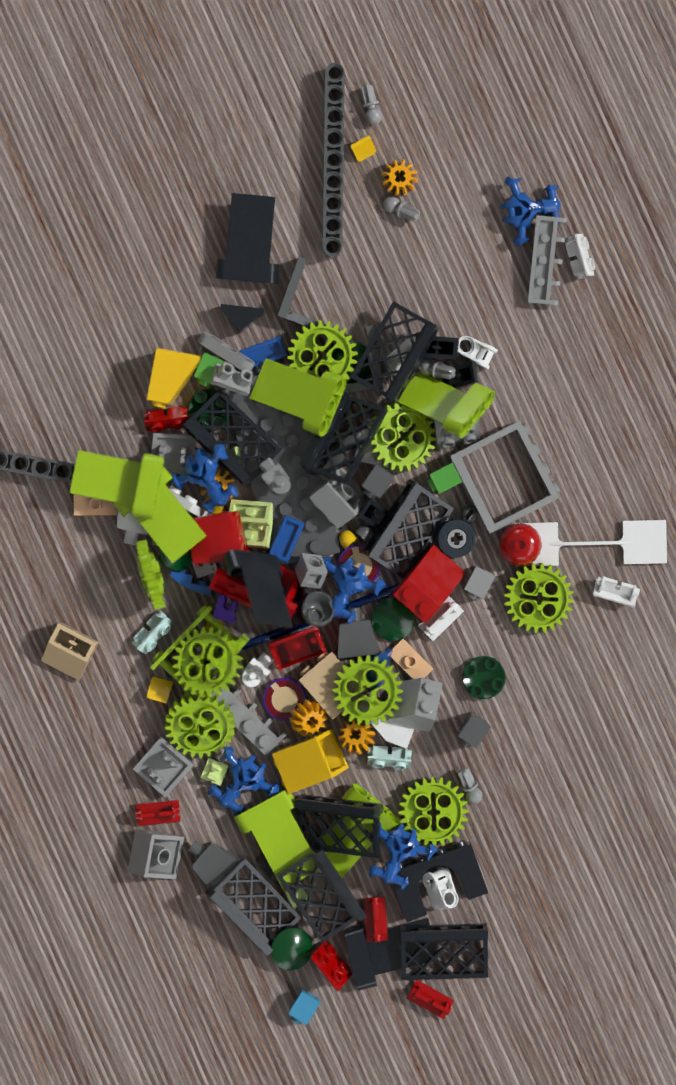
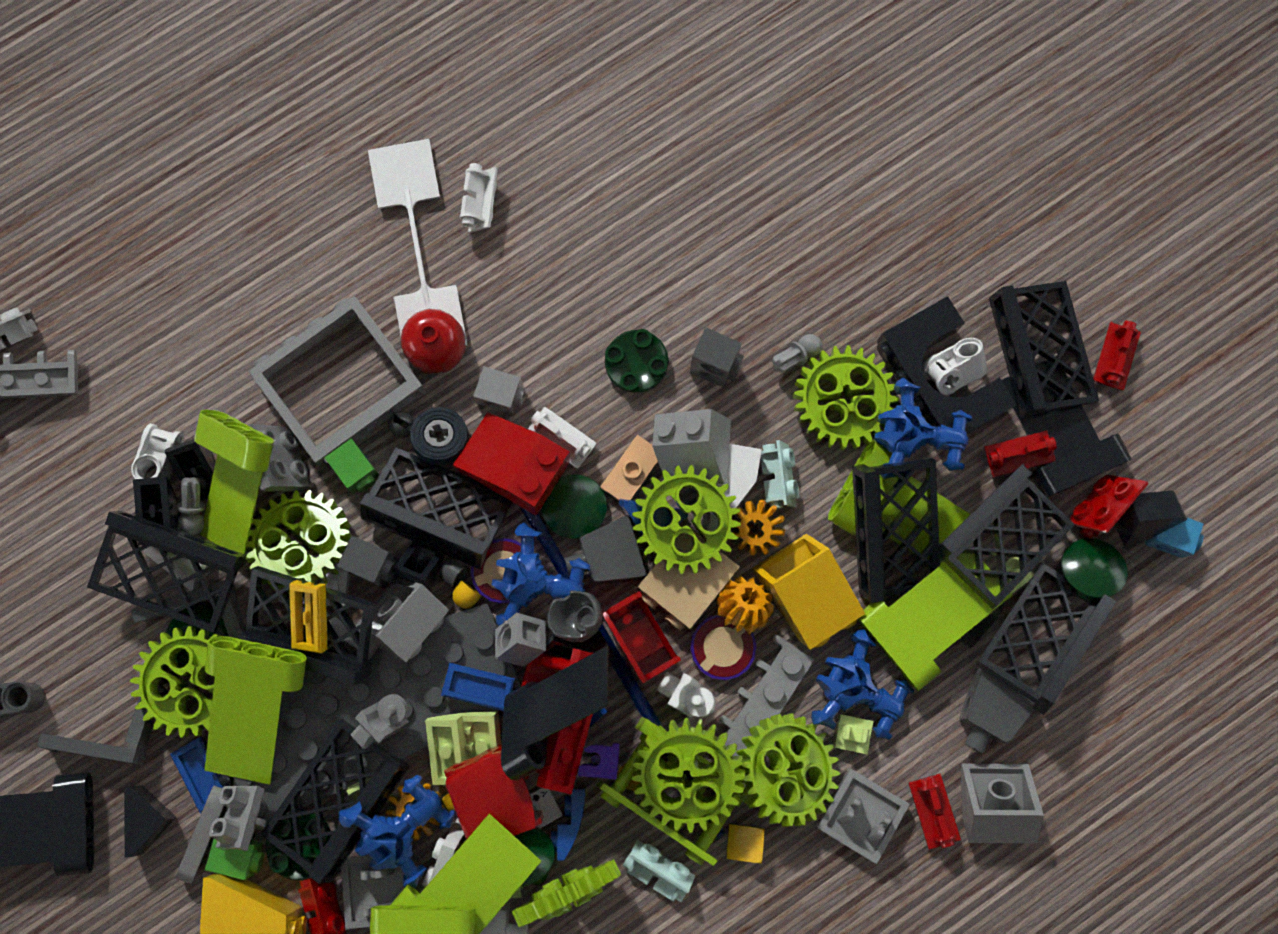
camera: 100 degrees left, 10 degrees down
(317, 991) = (1148, 517): none -> black slope
(347, 449) = (313, 618): none -> yellow tile
(536, 617) = (478, 305): lime gear -> none

